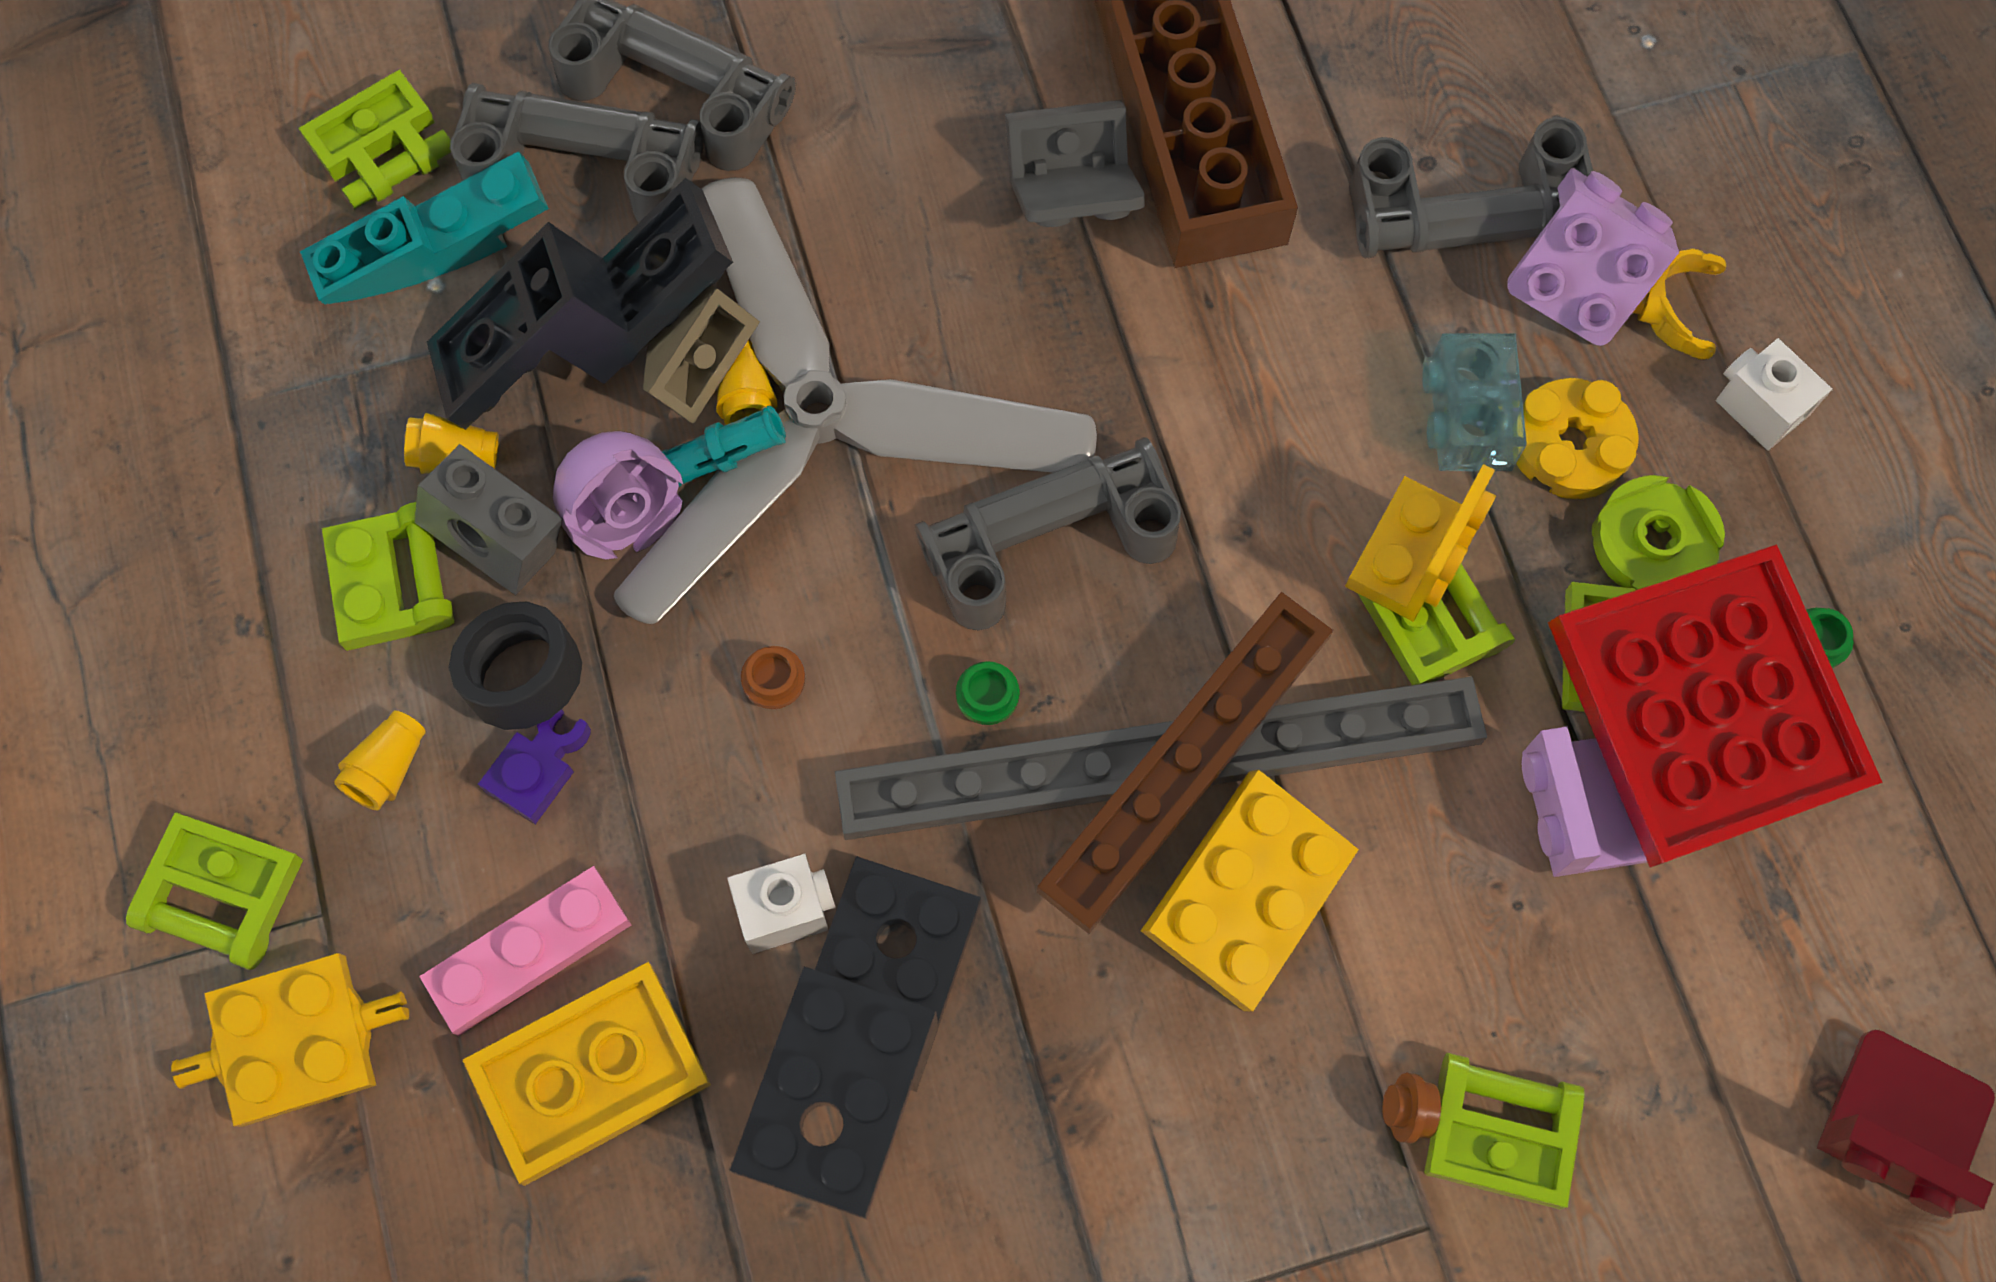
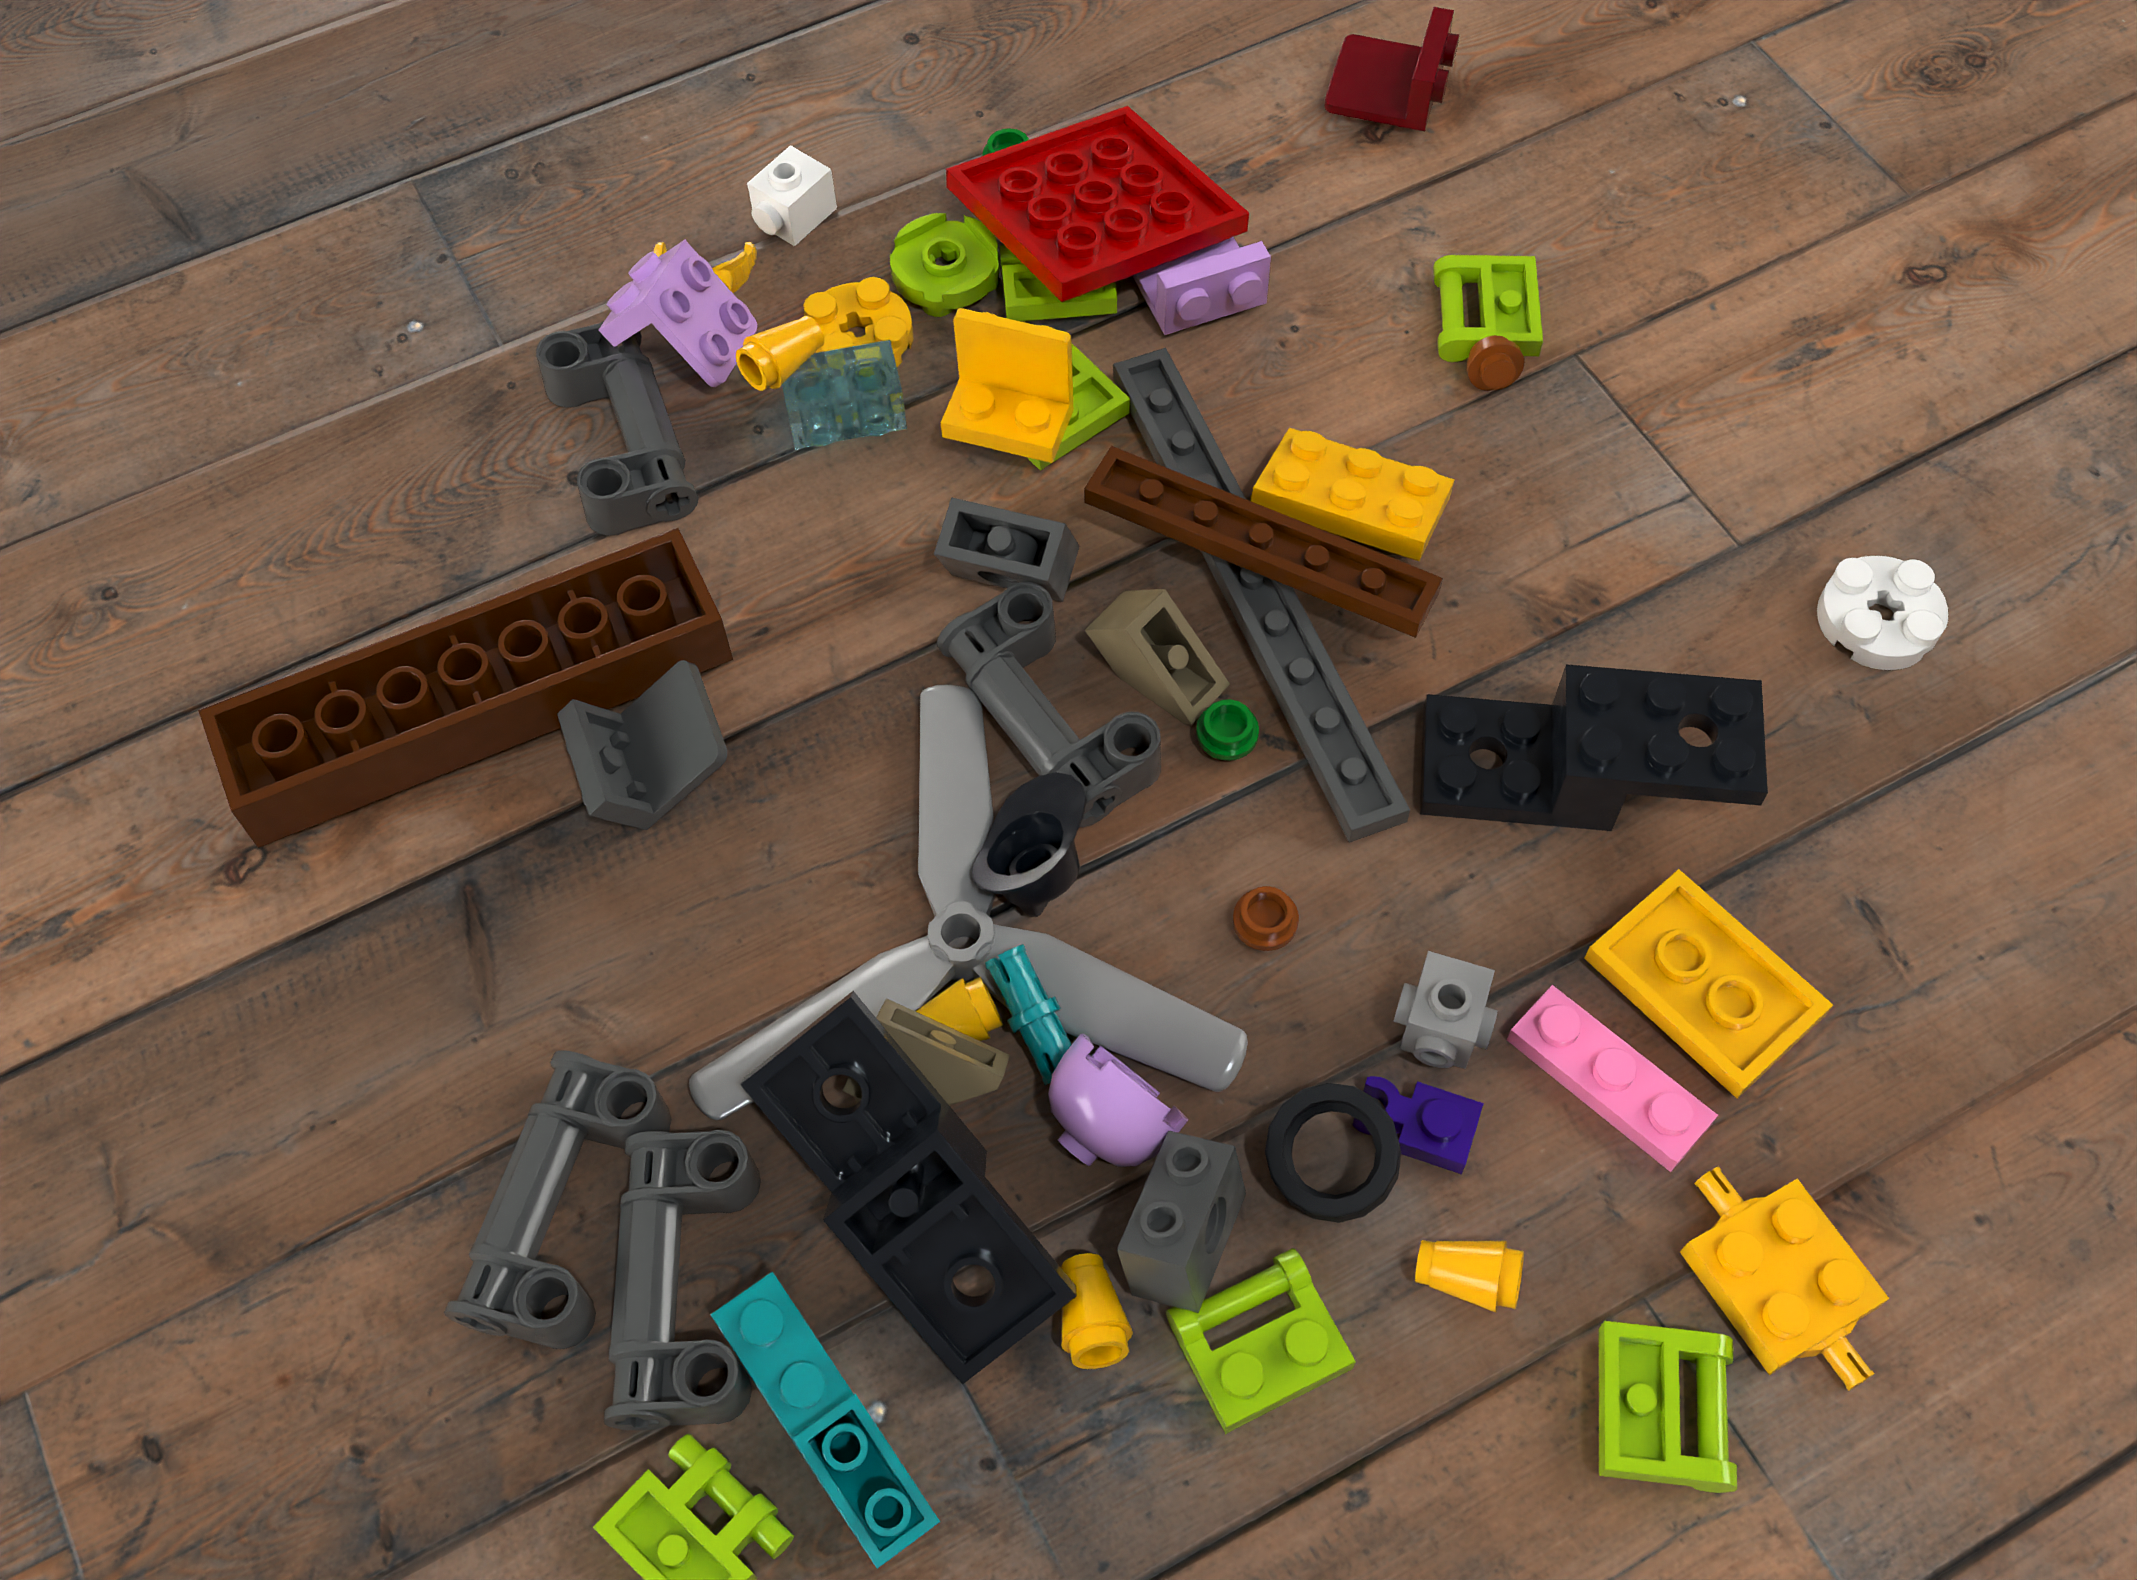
camera: 100 degrees left, 10 degrees down
(617, 801) = (1446, 1012): none -> light grey brick
(781, 903) = (1492, 851): white brick -> none
(887, 476) = (1032, 843): none -> black piece
(1084, 639) = (1158, 653): none -> dark tan slope
(1232, 514) = (1006, 547): none -> dark grey brick
(1509, 324) = (778, 352): none -> yellow cone

